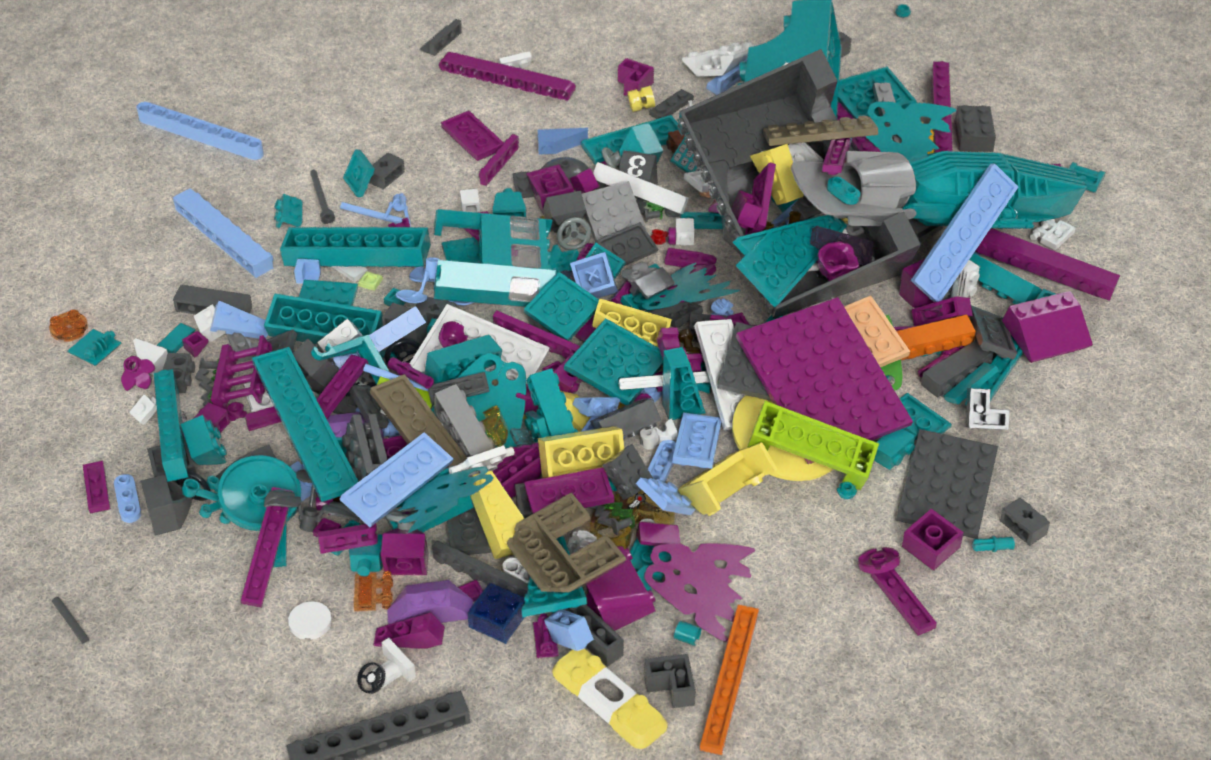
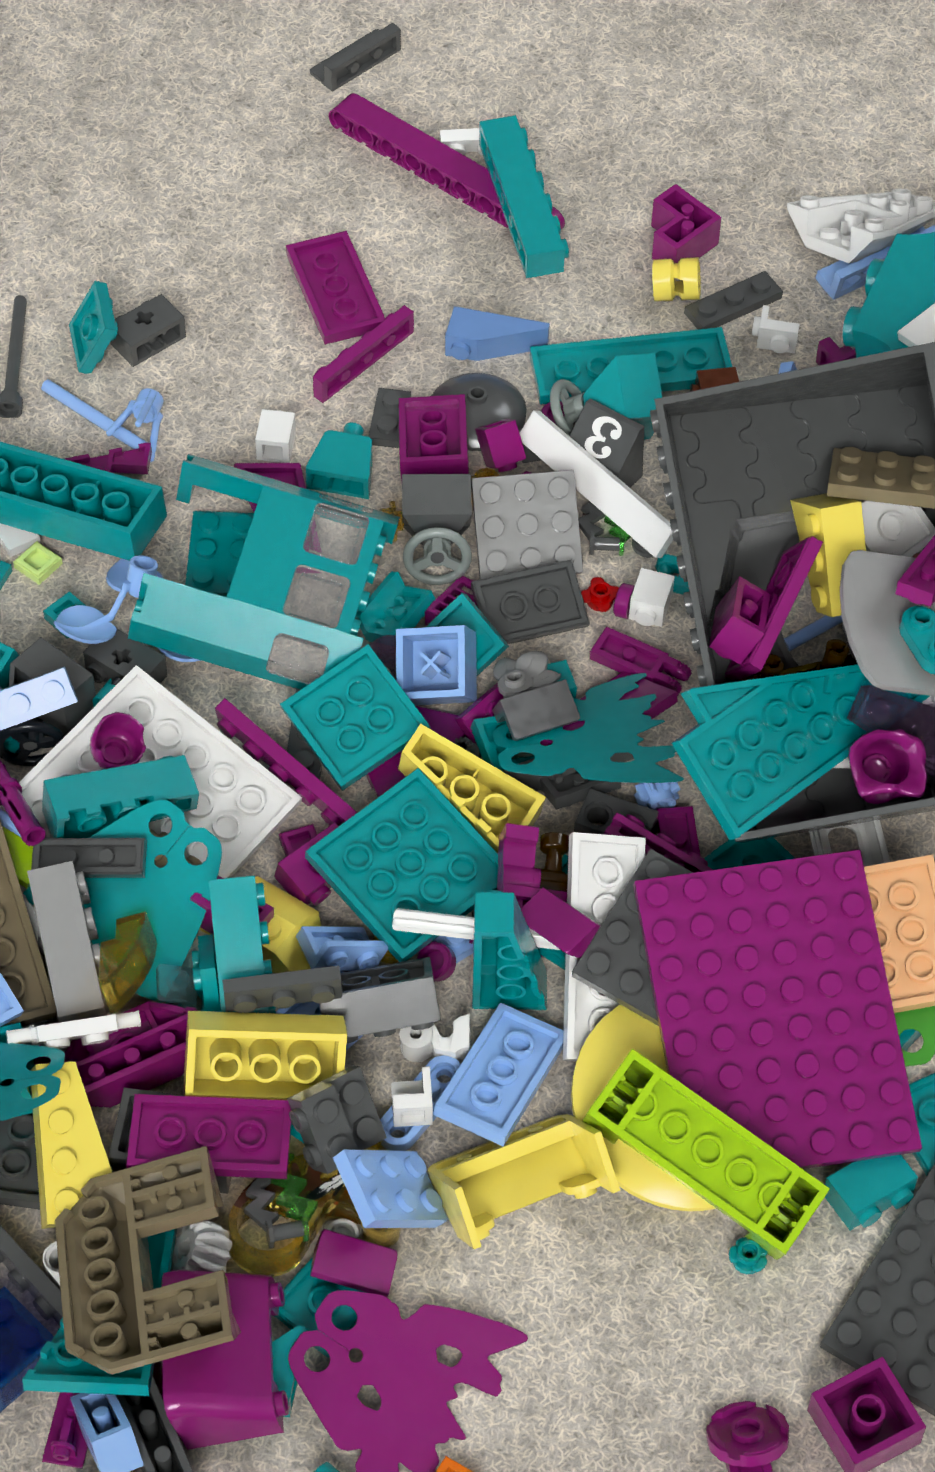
camera: 15 degrees right, 10 degrees up
(552, 76) = (522, 196): none -> teal brick
(581, 418) = (282, 989): none -> dark grey plate
(660, 461) = (413, 1101): none -> white panel
(706, 364) = (559, 923): none -> magenta slope

